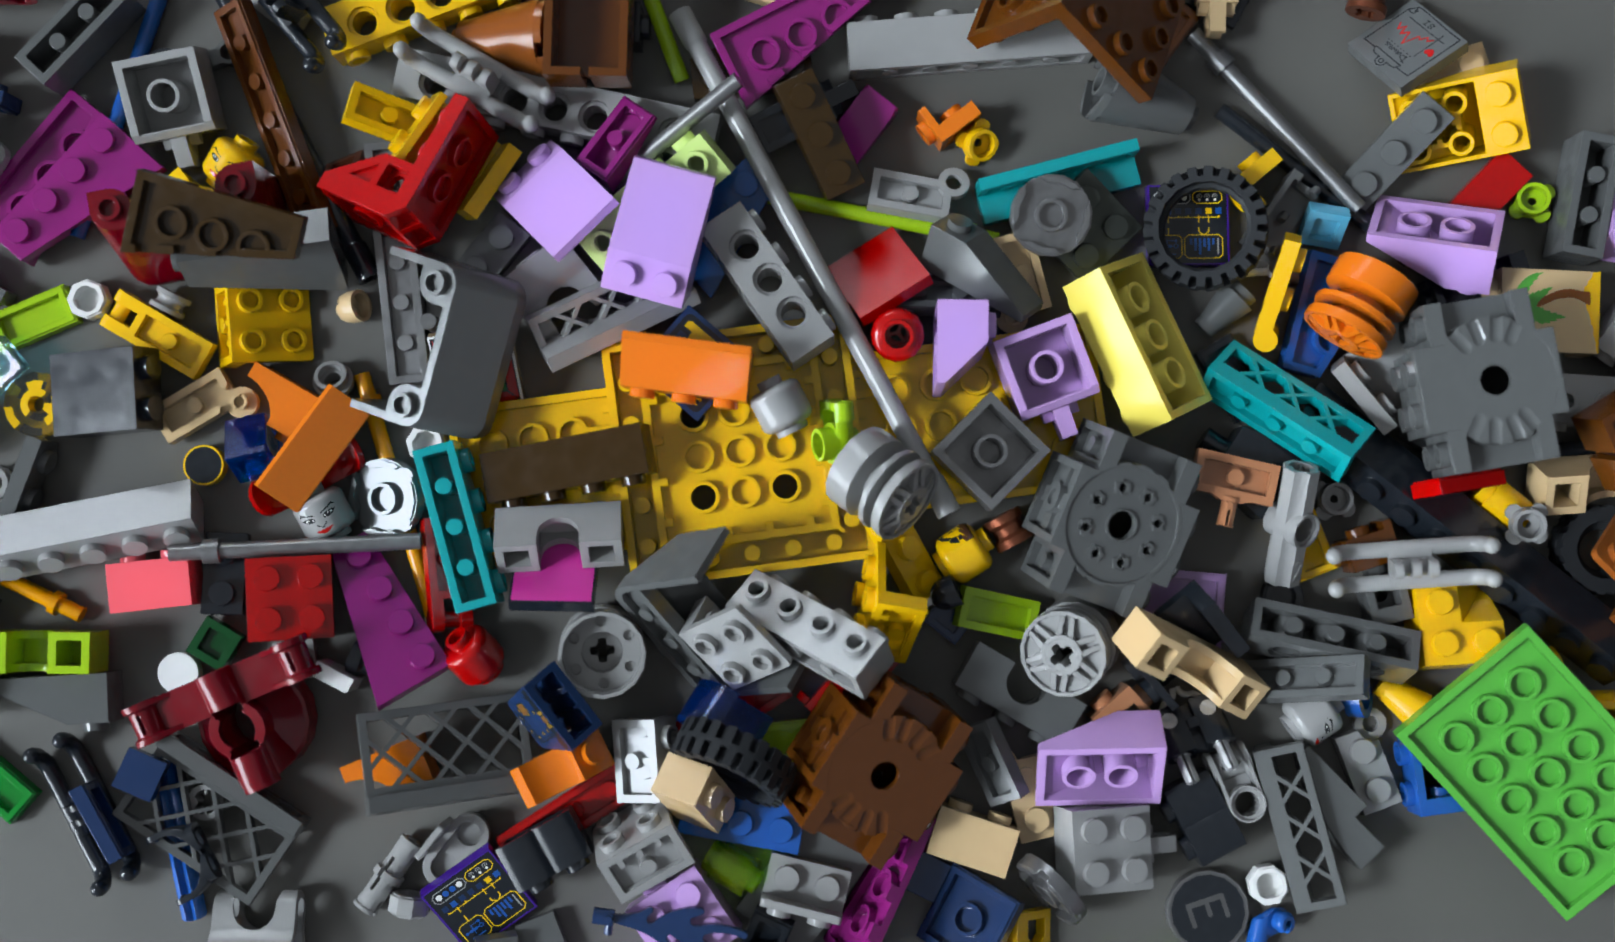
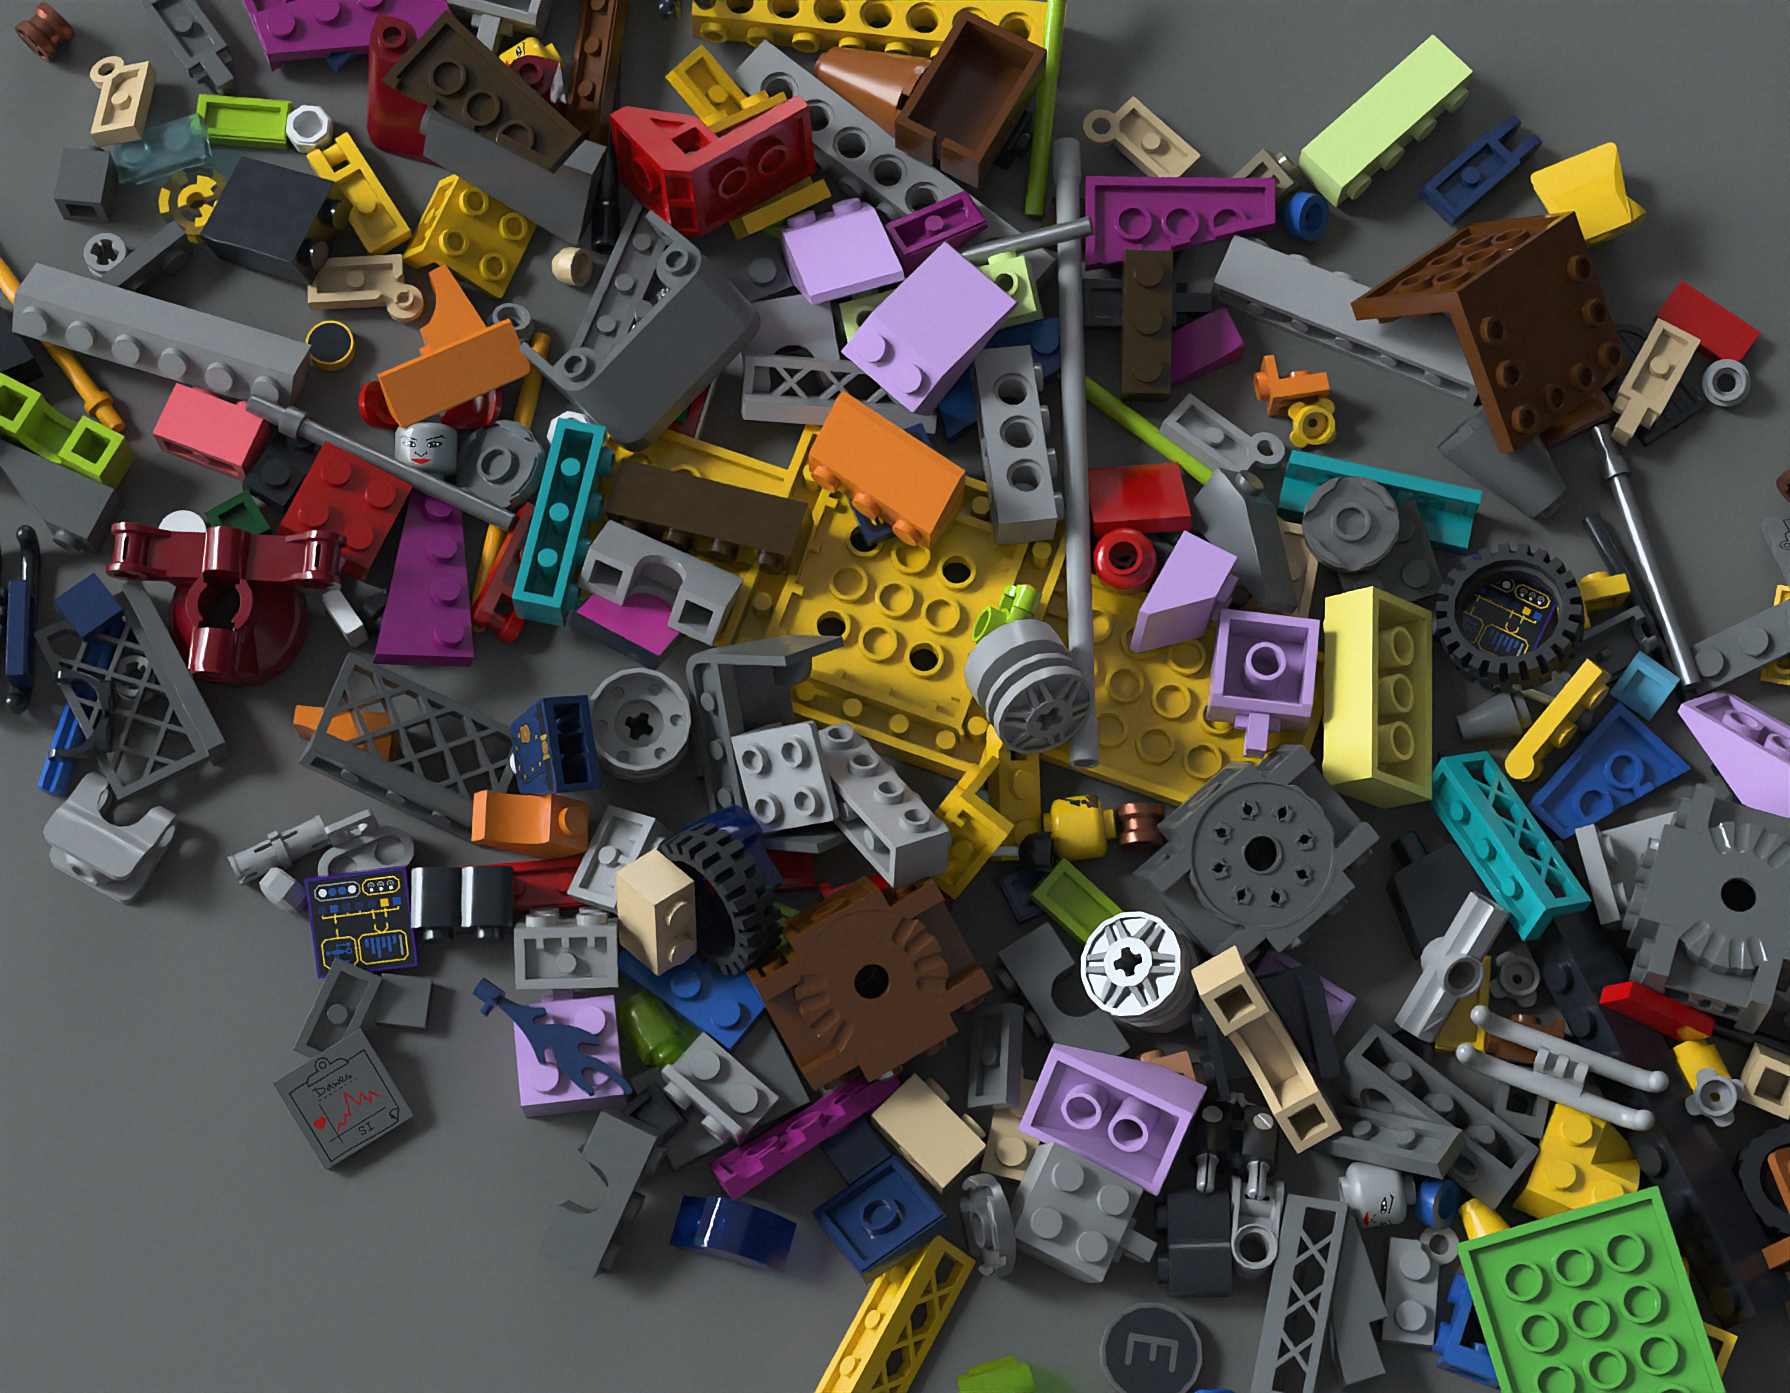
camera: 25 degrees right, 15 degrees down
(170, 302) = (389, 170): light grey bush -> none
(249, 446) = (389, 342): clear blue brick -> none
(474, 75) = (827, 97): light grey piece -> none
(474, 655) = (500, 666): red head -> none
(781, 406) = (963, 567): light grey head -> none
(989, 452) = (1160, 724): flat silver brick -> none
(1235, 482) = (1409, 887): nougat plate -> none
(1267, 884) = (1233, 1358): white tile -> none
(1361, 304) = (1638, 771): orange wheel -> none

